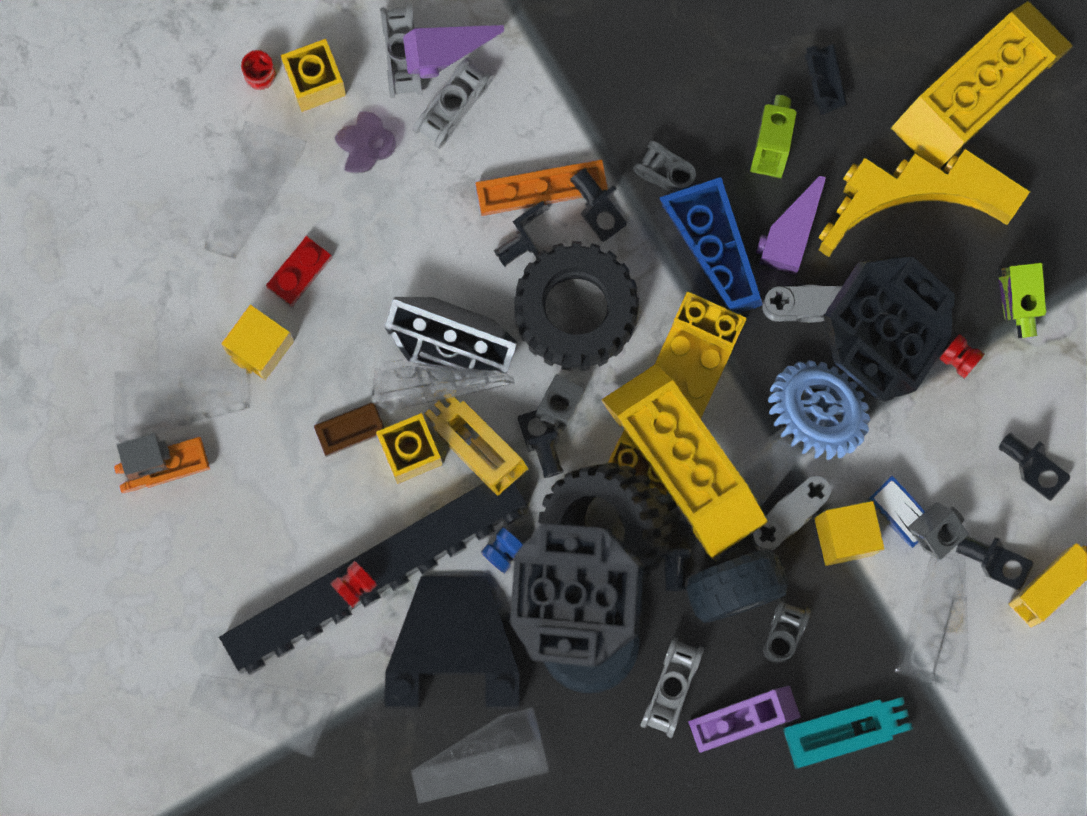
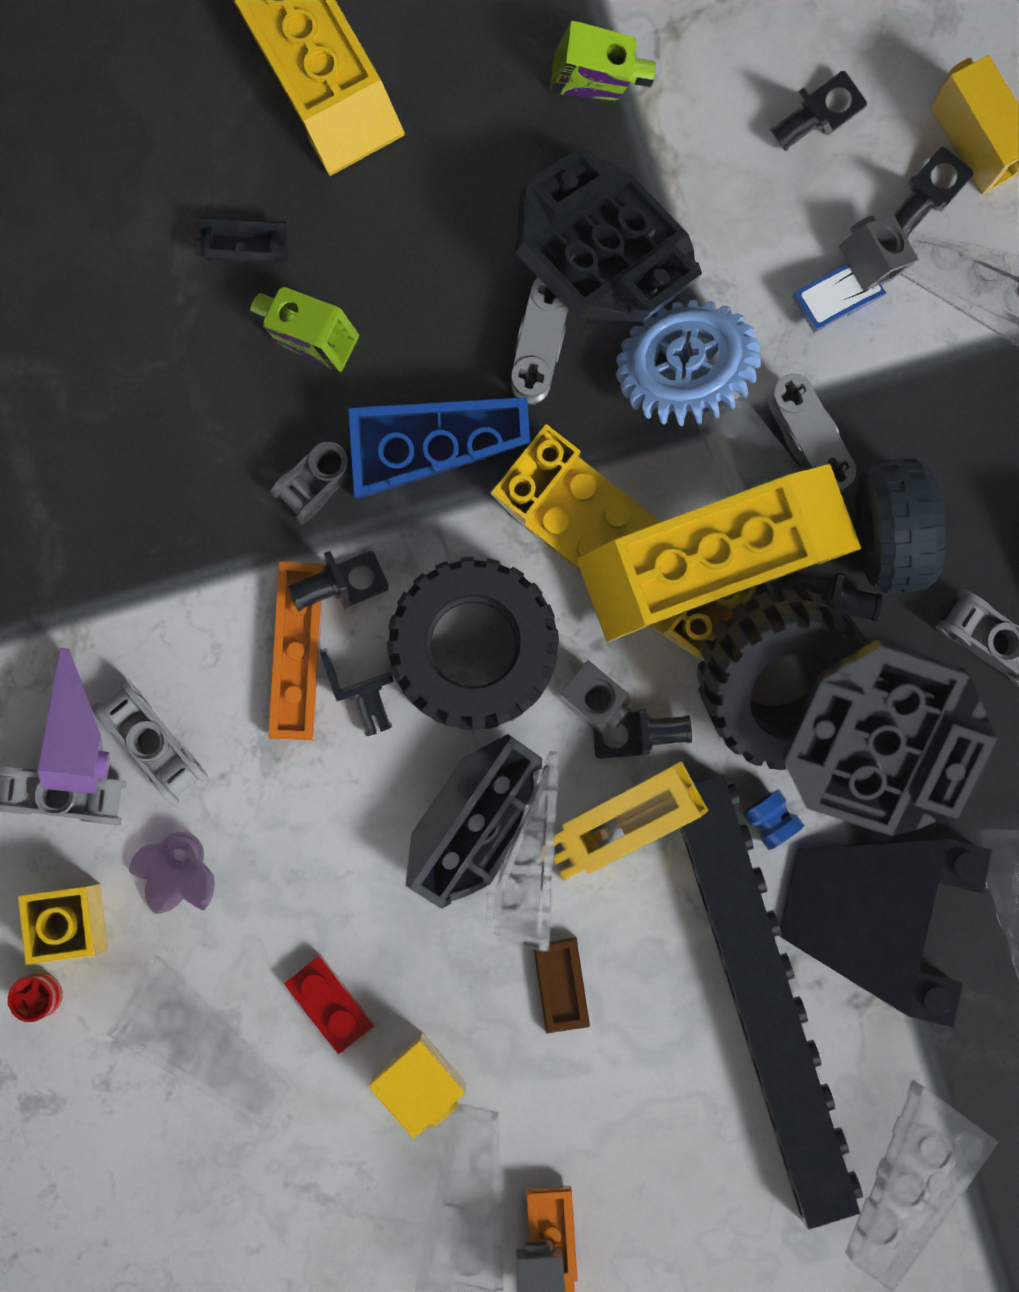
camera: 80 degrees left, 5 degrees up
(353, 584) = (788, 1036): red wheel -> none
(409, 448) = (612, 913): yellow head -> none
(786, 625) = (959, 477): dark grey piece -> none
(789, 234) = (443, 341): medium lavender slope -> none
(849, 533) = (858, 365): yellow head -> none
(967, 183) = (427, 98): yellow arch -> none
(967, 362) = (657, 163): red wheel -> none

